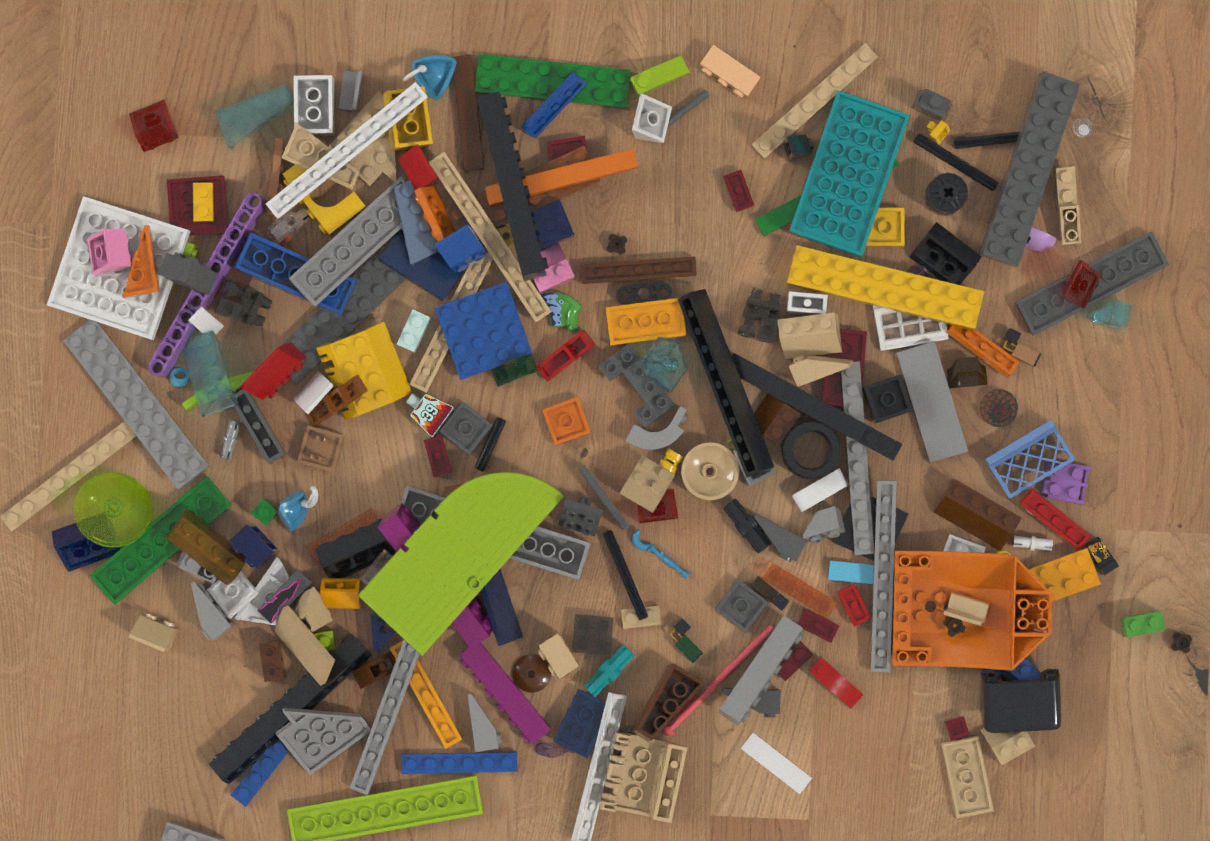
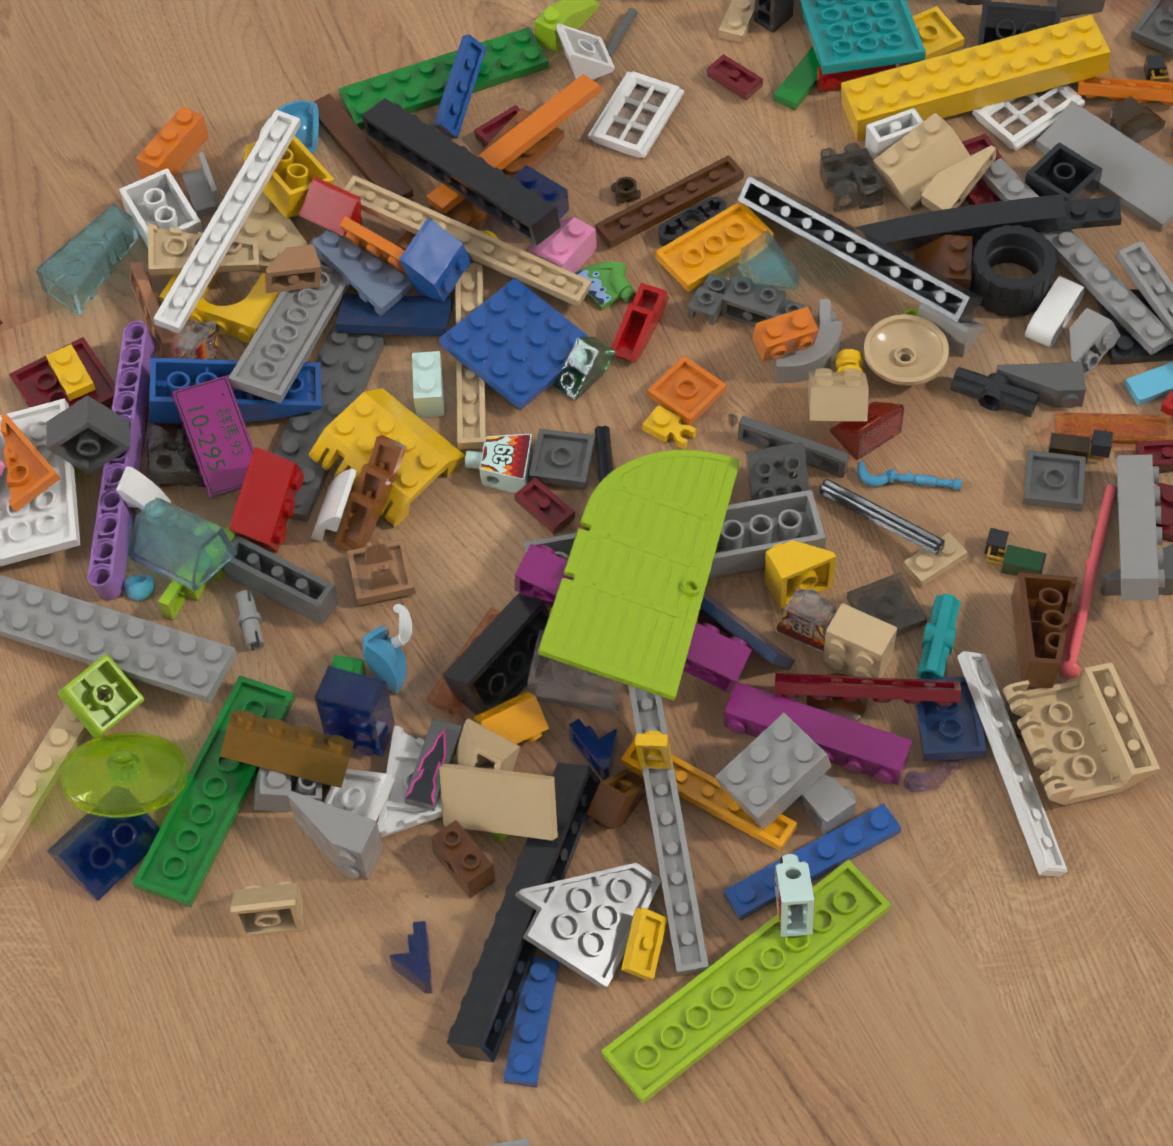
camera: 25 degrees left, 30 degrees down
(121, 462) = (82, 694): none -> lime brick
(217, 709) = (416, 964): none -> clear blue slope
(266, 310) = (215, 434): none -> magenta tile
(341, 763) = (644, 943): none -> yellow plate
(347, 47) = (173, 143): none -> orange brick
(371, 208) = (294, 270): none -> medium nougat slope
(400, 669) = (653, 750): none -> yellow plate
(427, 794) = (794, 887): none -> light aqua torso
(461, 711) = (773, 771): none -> light grey brick
(540, 436) = (667, 425): none -> yellow plate
(542, 620) = (807, 618): none -> clear torso
(545, 685) = (880, 689): none -> dark red plate
(550, 588) = (797, 566): none -> yellow slope
(639, 429) = (785, 334): none -> orange brick
(658, 184) = (636, 114): none -> white piece

